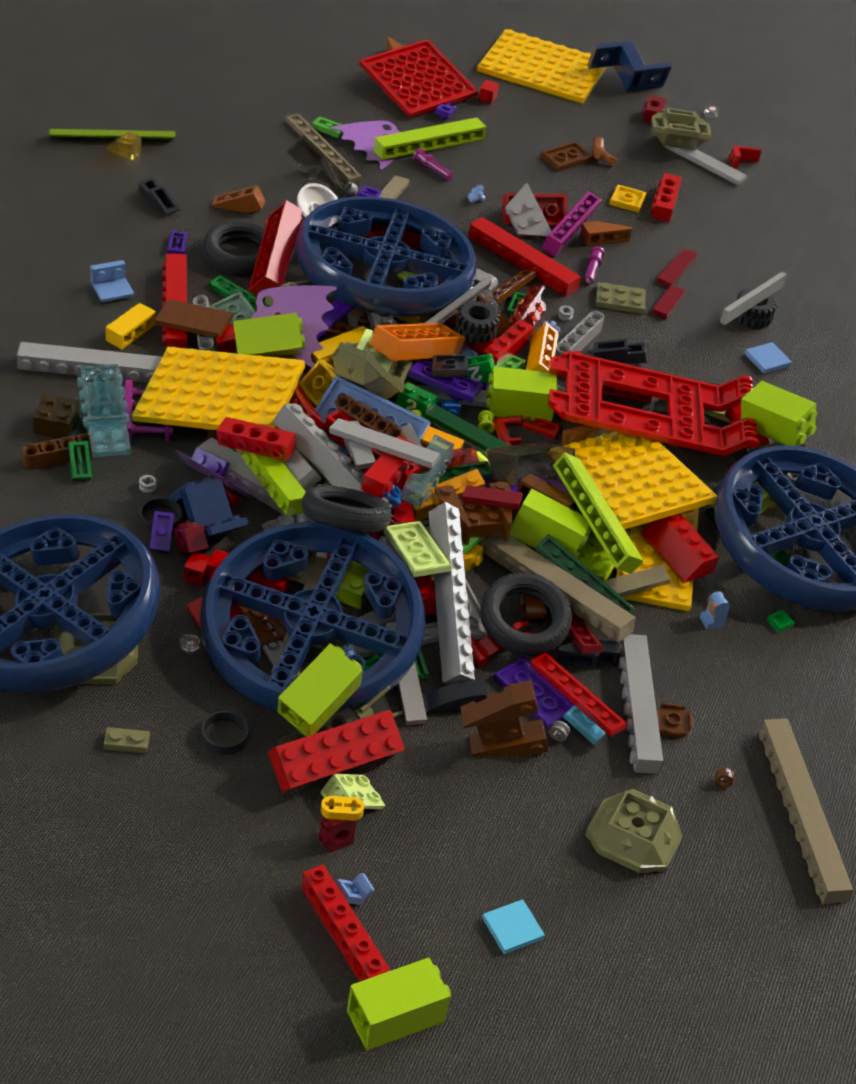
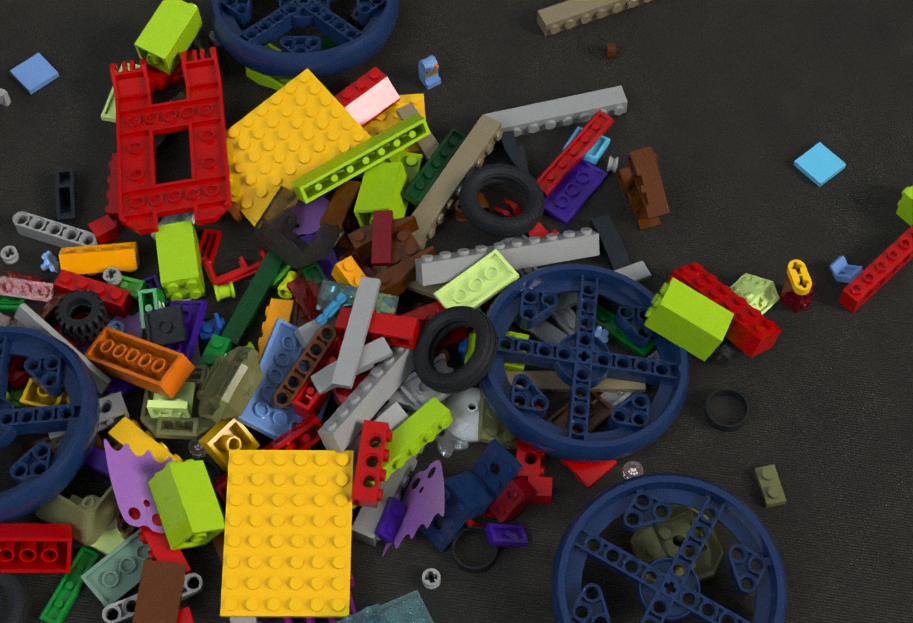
camera: 95 degrees left, 15 degrees up
(419, 440) = (332, 309): none -> dark azure axle
(520, 356) = (108, 278): none -> light grey bush
(583, 636) = (513, 152): dark red tile -> none
(635, 831) = (694, 101): olive piece -> none
(674, 720) = (559, 88): reddish brown tile -> none
(780, 621) = (411, 32): green tile -> none

